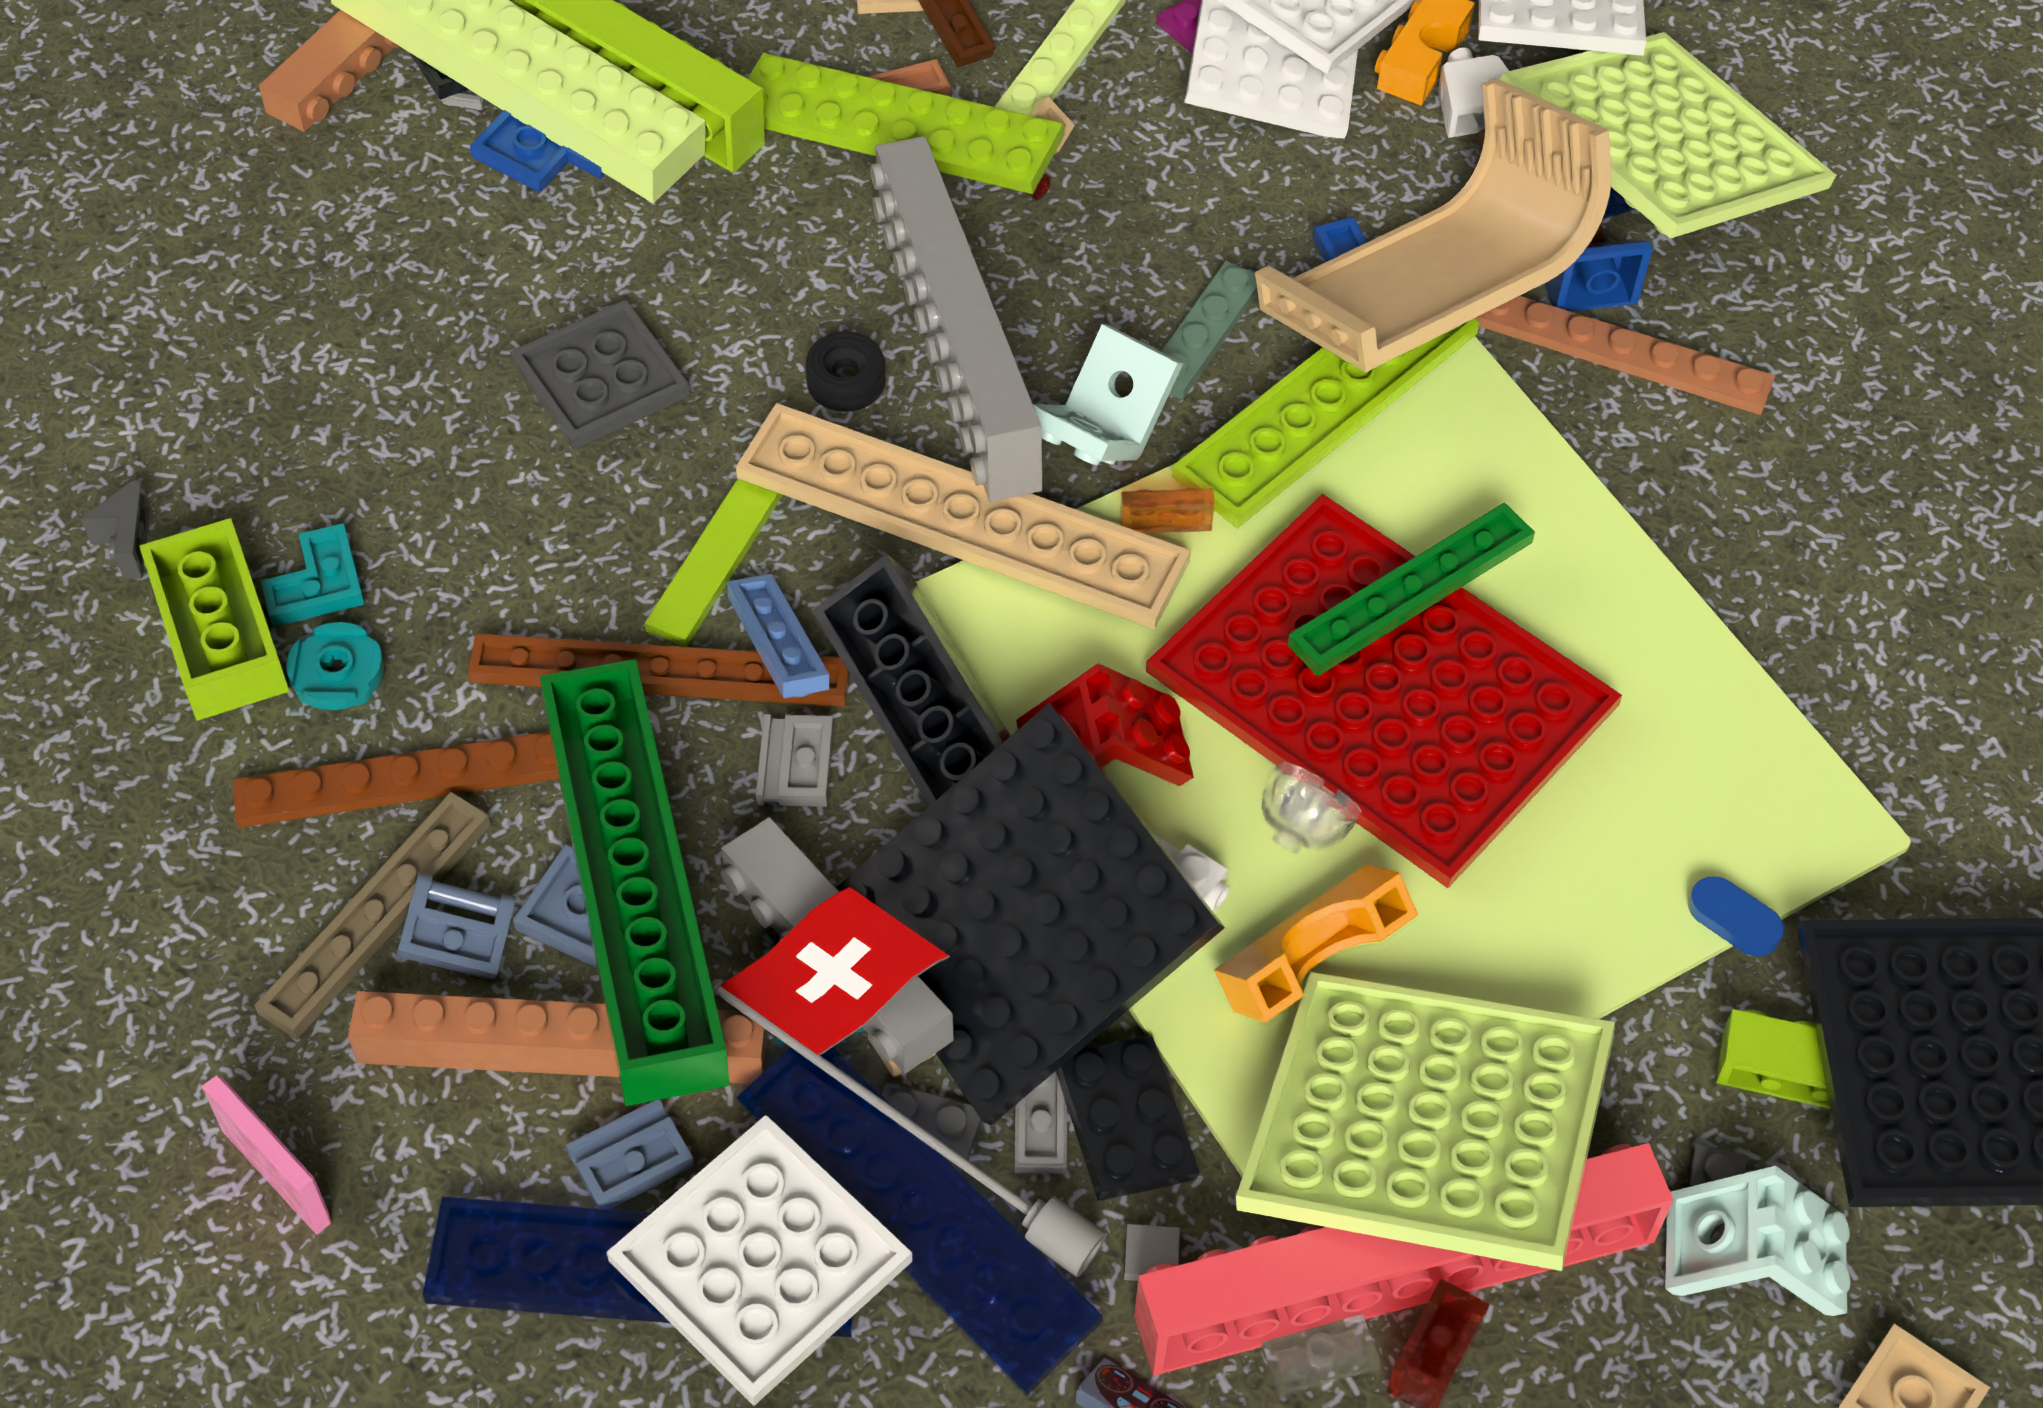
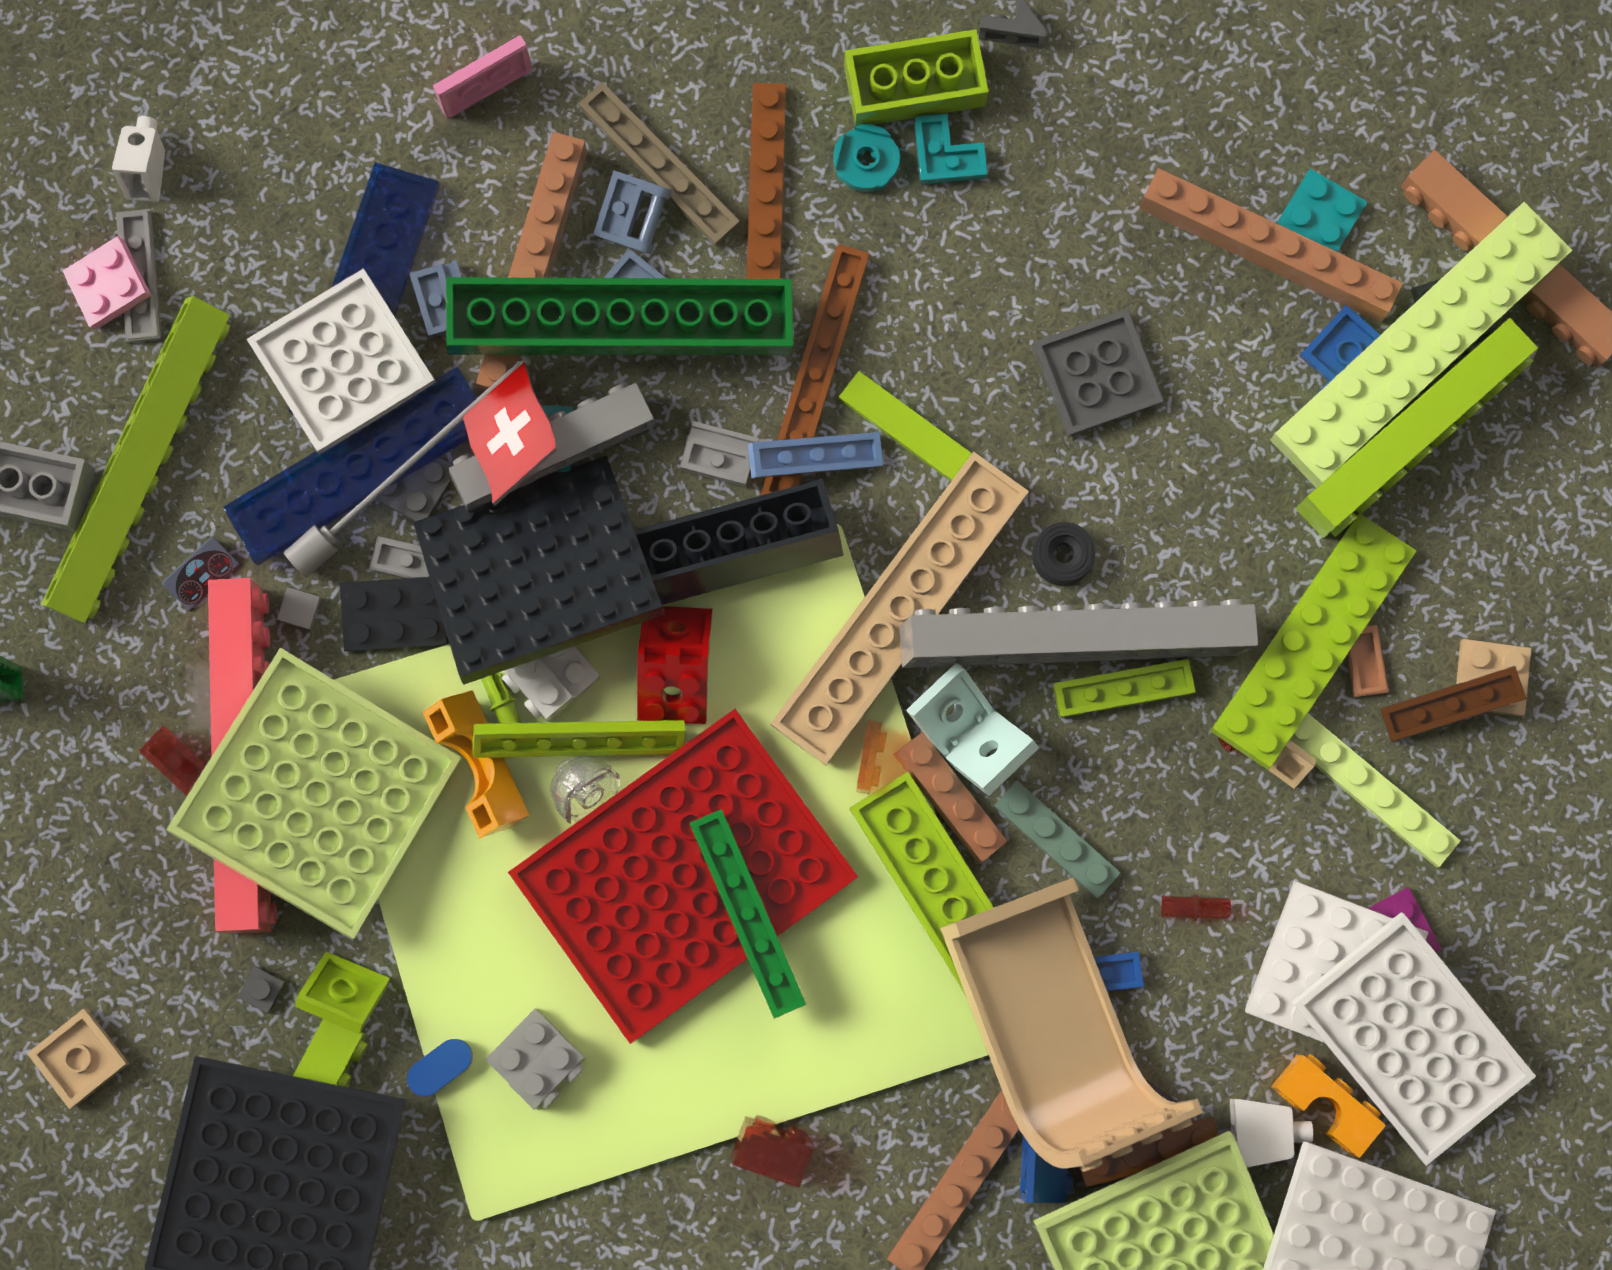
camera: 100 degrees right, 25 degrees up
(351, 195) = (1322, 211): none -> teal plate
(400, 231) = (1270, 245): none -> nougat brick
(1013, 304) = (1124, 688): none -> lime plate
(1212, 408) = (950, 798): none -> nougat plate
(1238, 929) = (500, 699): none -> lime axle
(1243, 190) = (1195, 907): none -> clear red axle
(1250, 828) = (577, 738): none -> lime plate
(1682, 801) = (536, 1060): none -> light grey plate
(1685, 1051) = (342, 992): none -> lime plate
(1689, 529) = (772, 1150): none -> clear red brick
(1769, 1231) = (197, 994): light aqua bracket -> none

